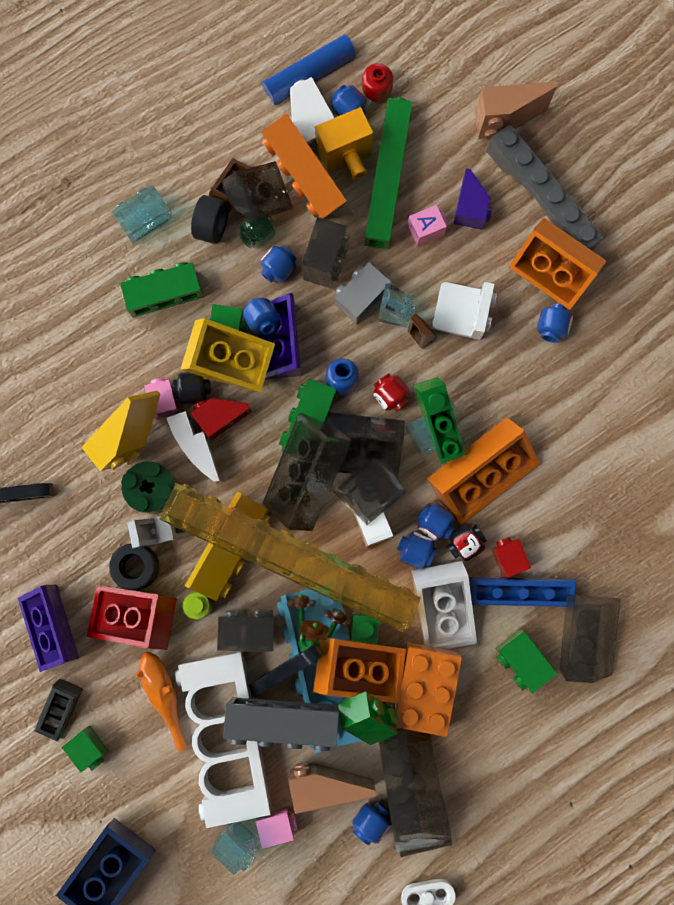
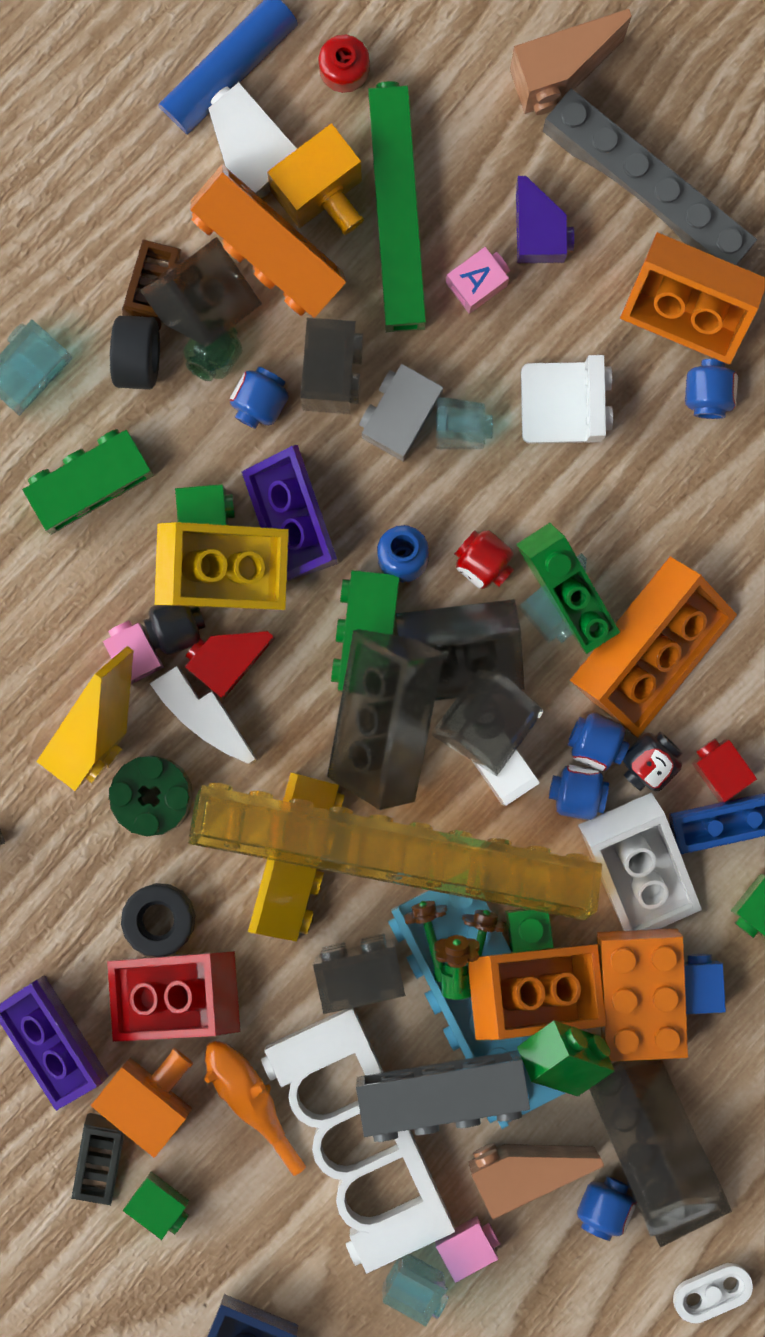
camera: 15 degrees left, 5 degrees up
(93, 681) = (144, 1103): none -> orange brick
(153, 533) = (175, 861): light grey brick -> none
(197, 605) = (269, 955): lime brick -> none
(261, 316) = (256, 490): blue head -> none
(286, 669) = (427, 1018): black beam -> none
(347, 99) = (306, 108): blue head -> none
(420, 331) = (508, 451): reddish brown slope -> none
(468, 692) = (704, 985): none -> blue brick

